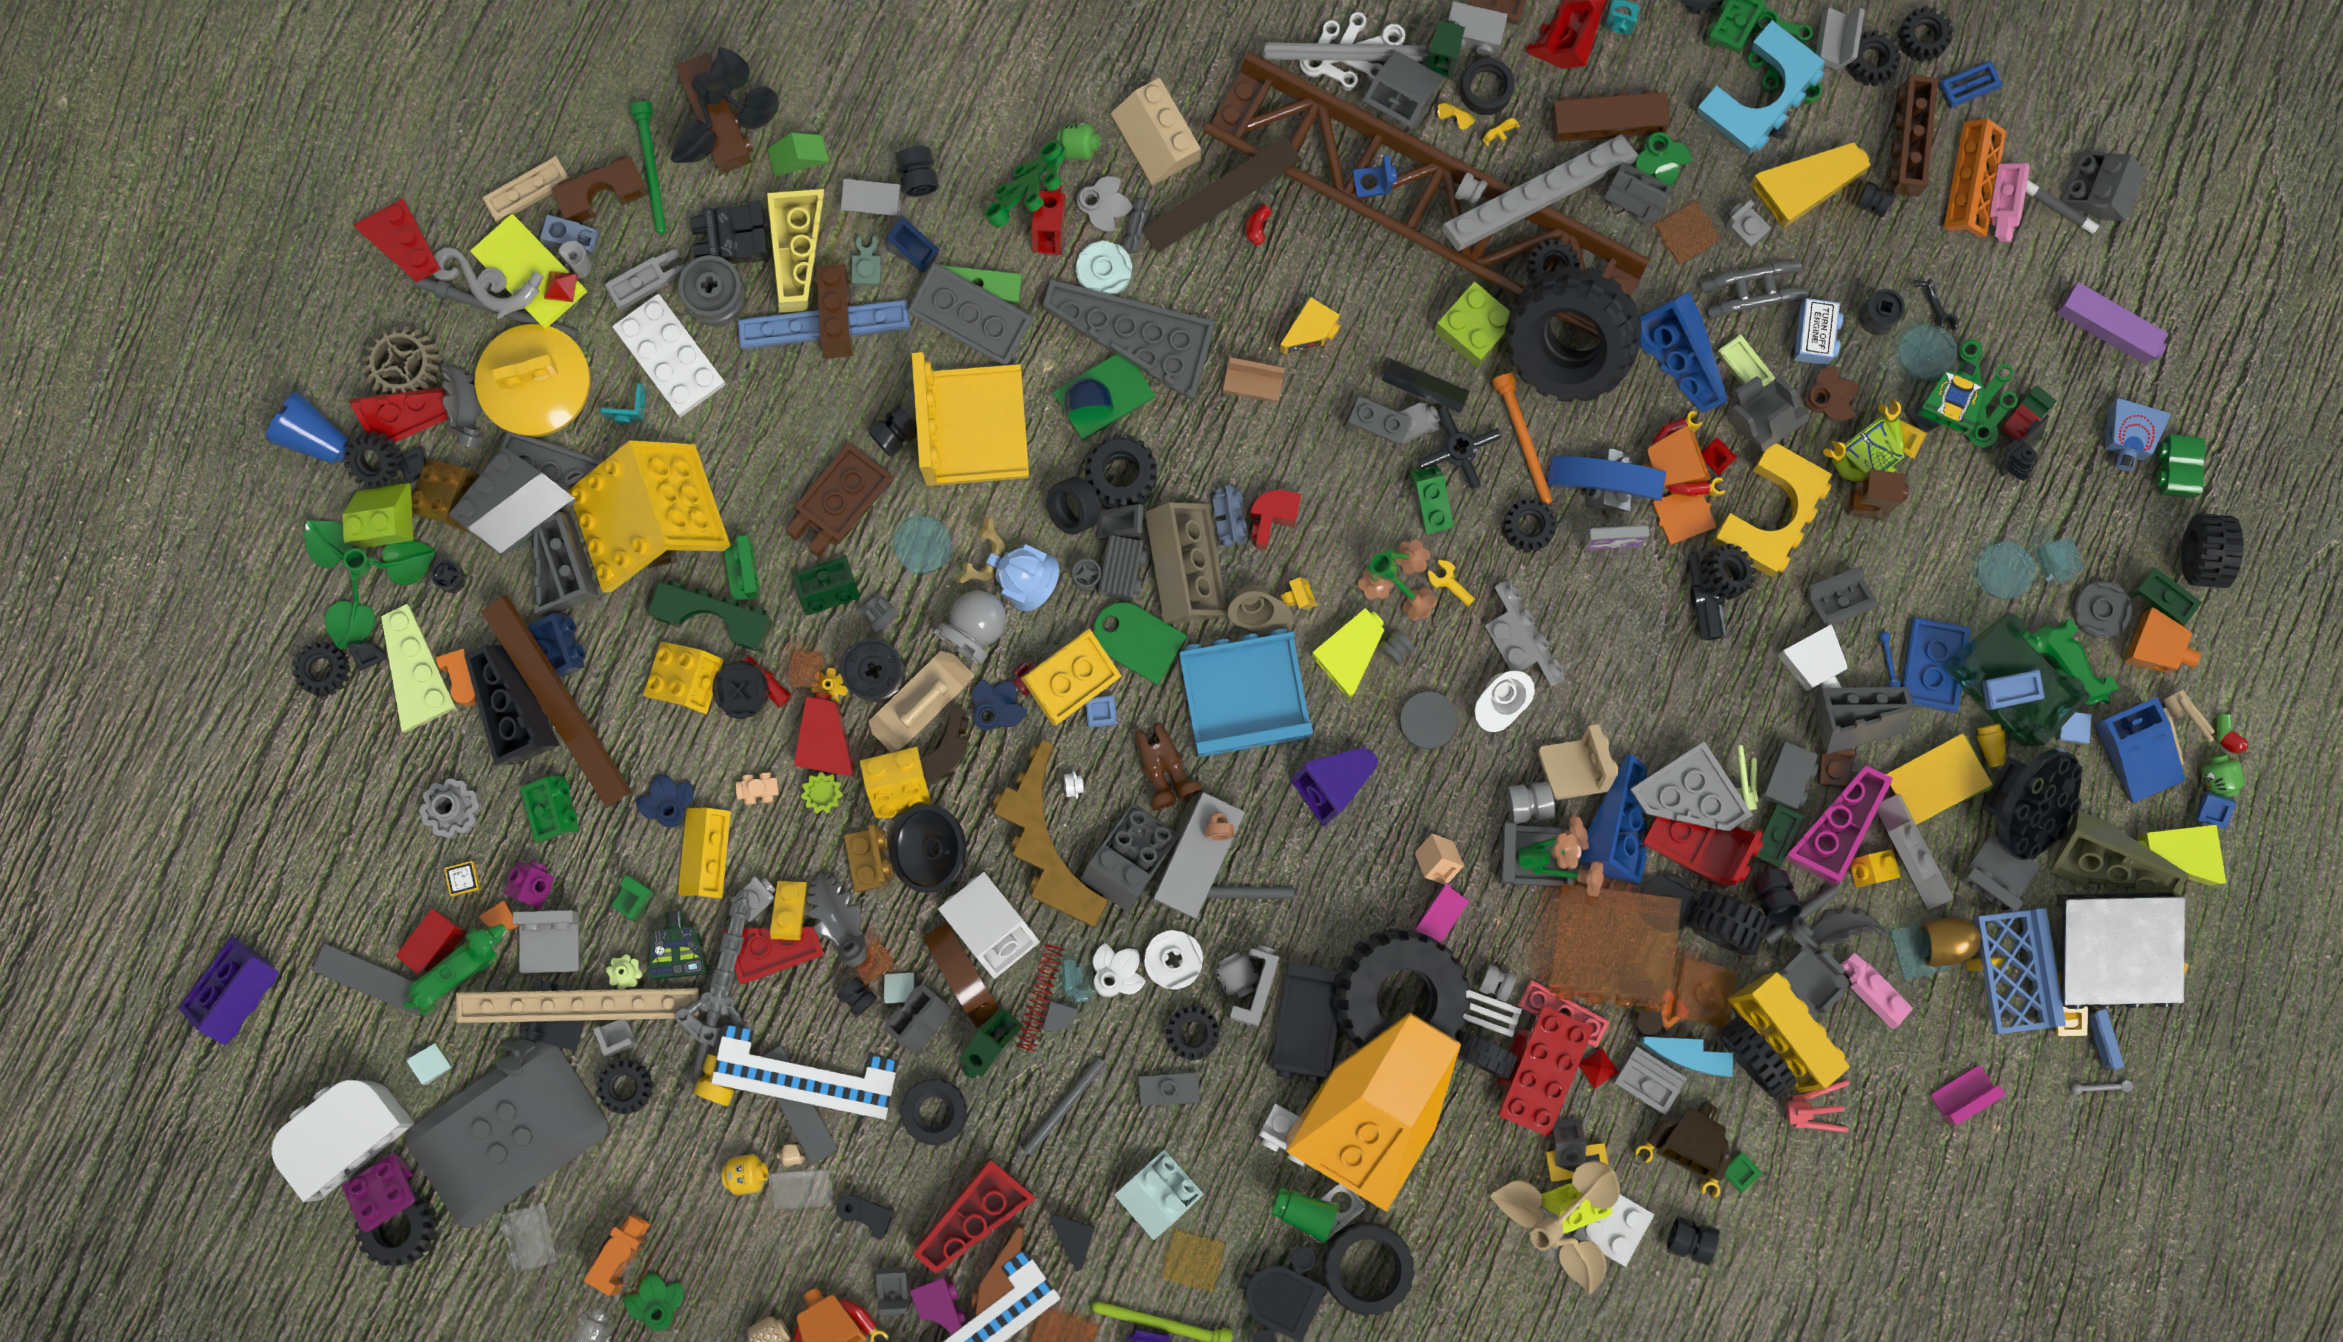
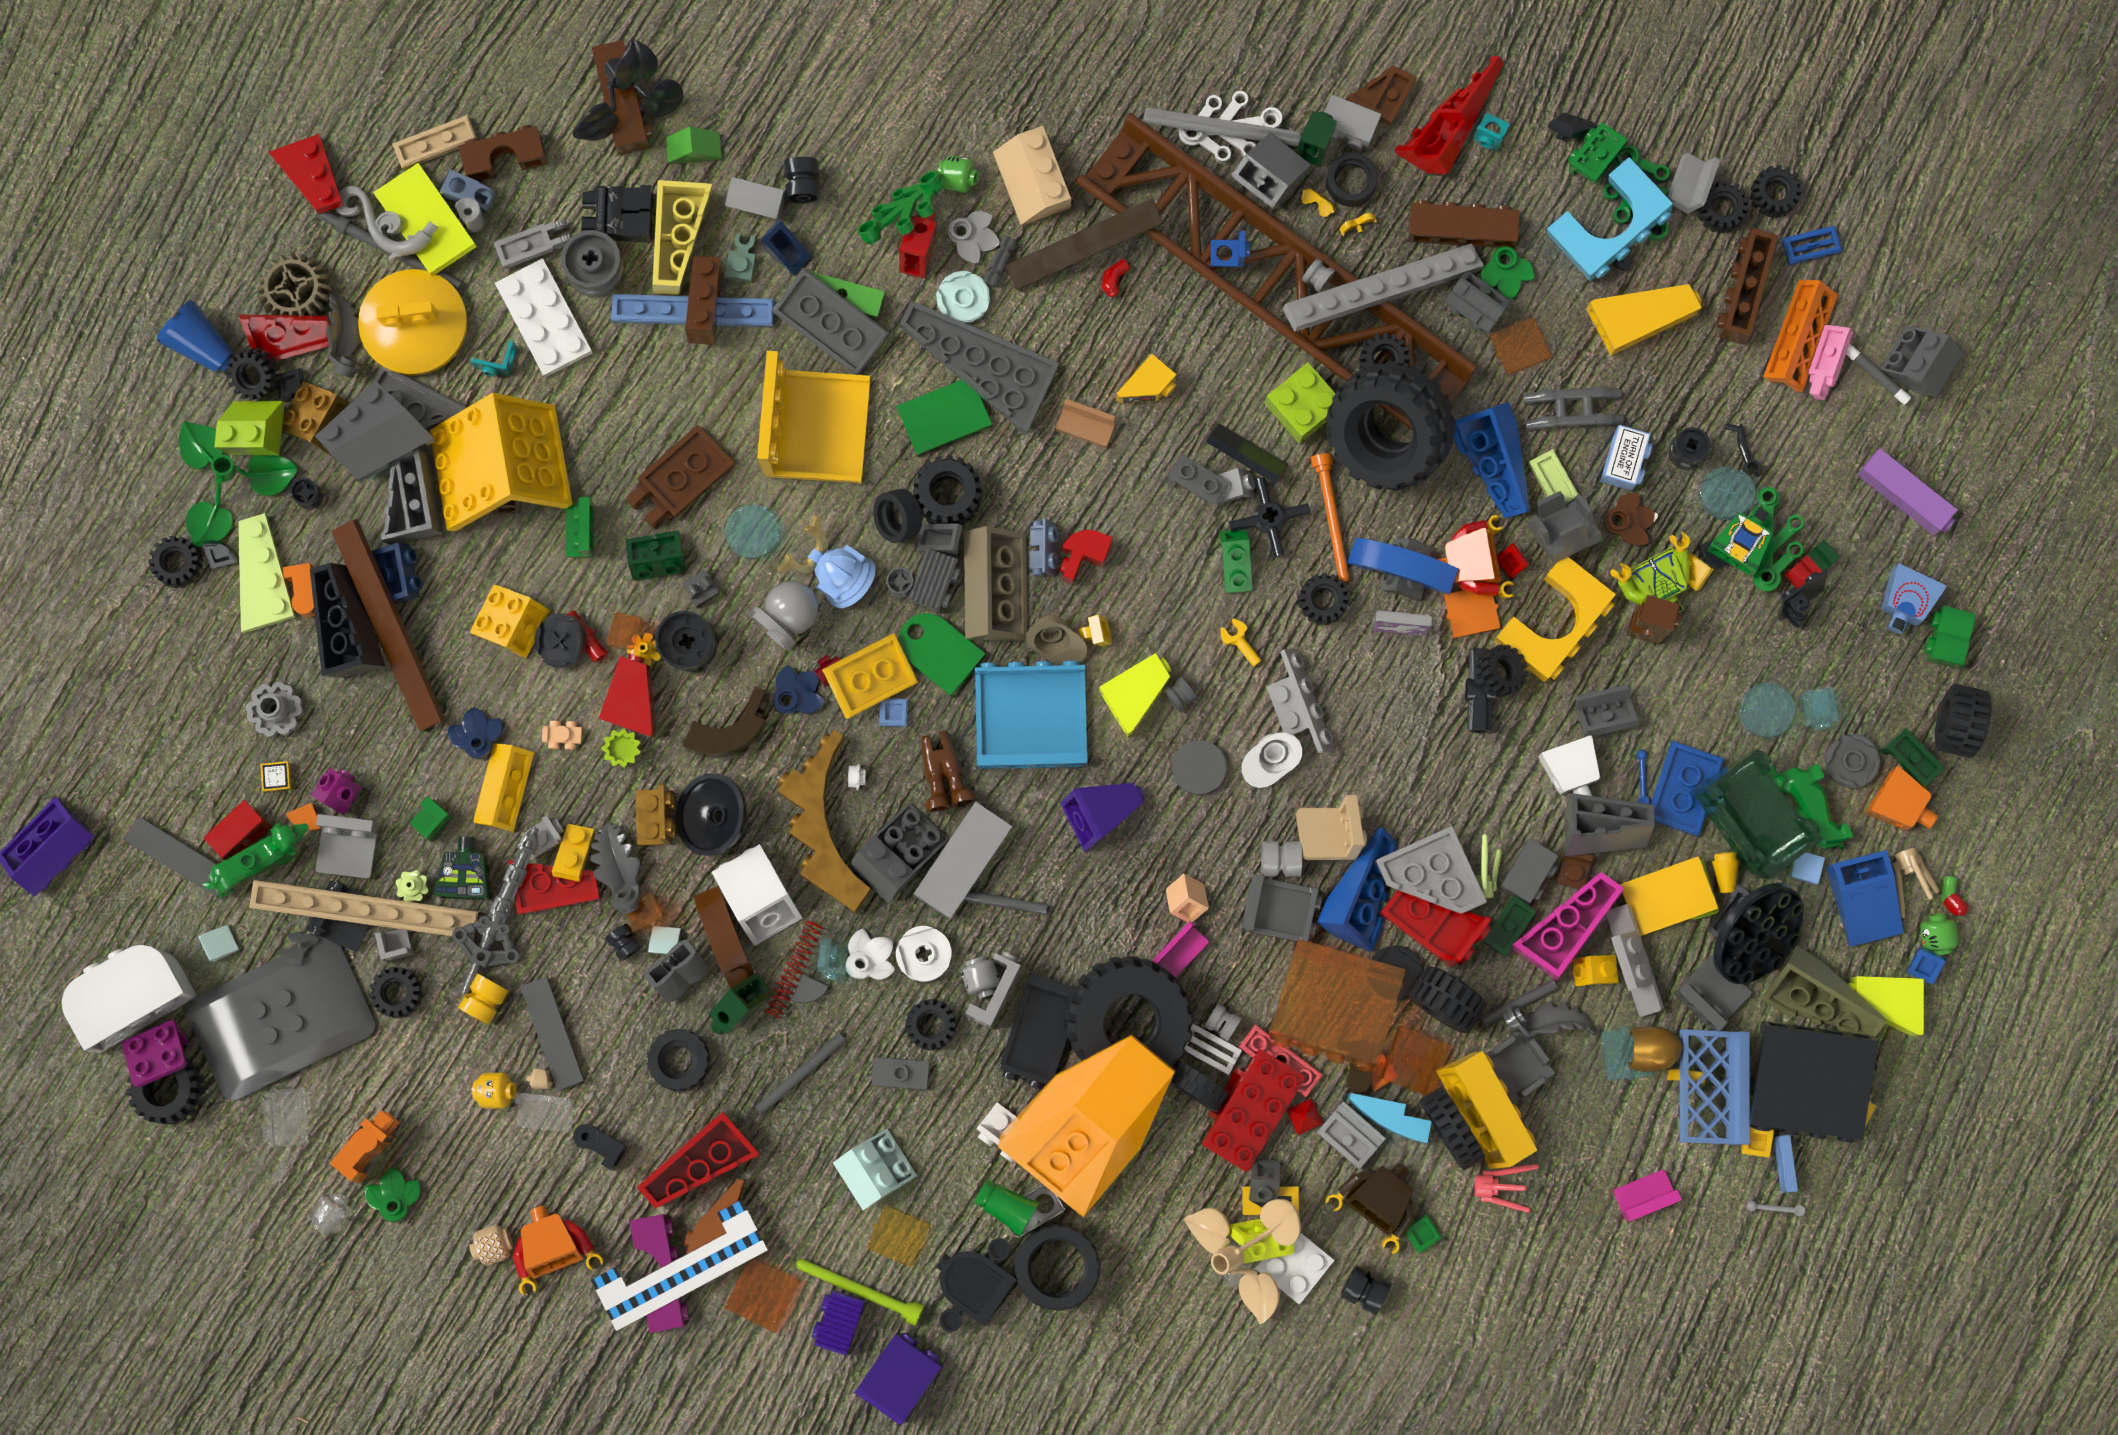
camera: 10 degrees right, 0 degrees up
(549, 808) = (366, 723): green bracket -> none
(561, 286) = (452, 238): red slope -> none
(642, 113) = (554, 86): green piece -> none
(675, 606) = (513, 553): dark green arch -> none
(801, 1083) = (559, 1014): white sticker -> none
(892, 1291) = (613, 1219): dark grey bracket -> none
(894, 430) = (741, 420): black wheel -> none
(895, 782) = (690, 748): yellow bracket -> none
(920, 701) = (726, 677): tan piece -> none
(1074, 1237) = (790, 1197): black slope -> none
(1087, 393) = (927, 412): helmet -> none
(1219, 831) = (984, 840): nougat tile -> none
(1381, 577) = (1174, 629): nougat plant -> none
(1566, 850) = (1303, 911): nougat plant -> none
(1747, 224) = (1576, 346): light grey bracket -> none
(1777, 896) = (1497, 982): black wheel -> none
(1875, 198) = (1701, 340): black wheel -> none
(1876, 991) = (1577, 1085): bright pink hinge -> none
(2013, 689) = (1751, 822): medium blue tile -> none

